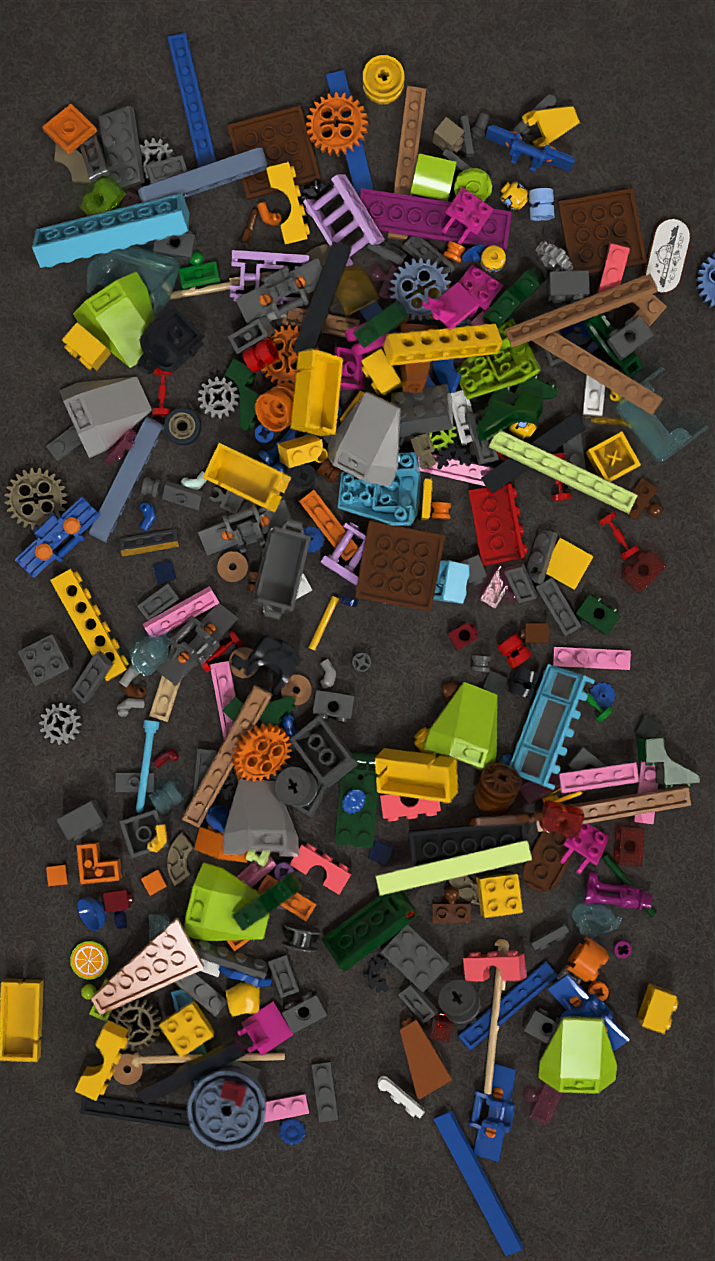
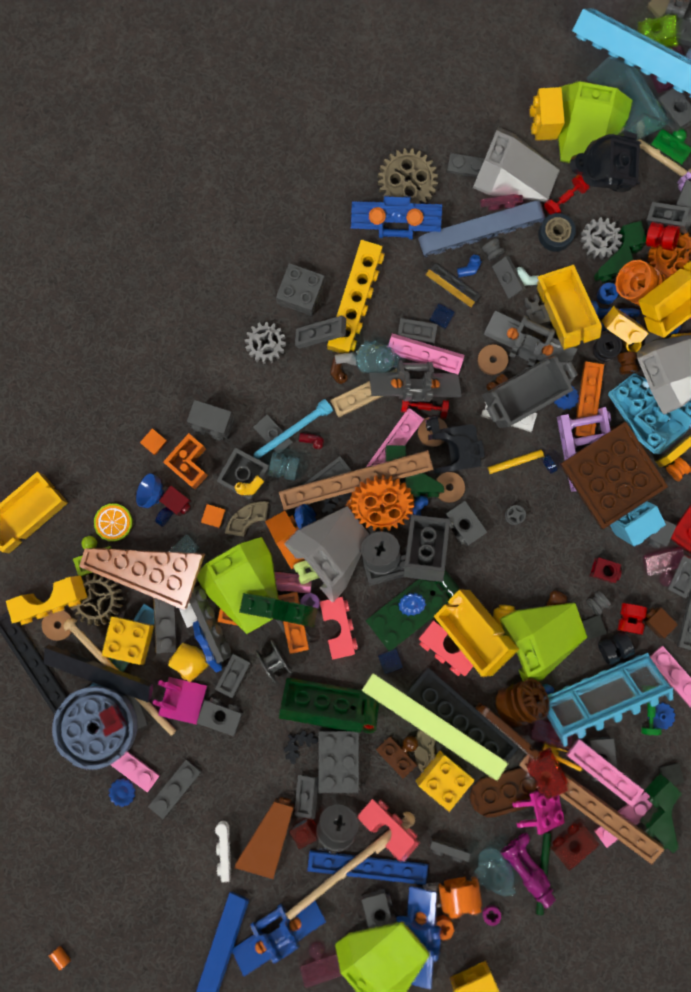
camera: 50 degrees right, 5 degrees down
(129, 703) = (324, 377): light grey arm -> none
(330, 674) = (482, 501): light grey arm -> none

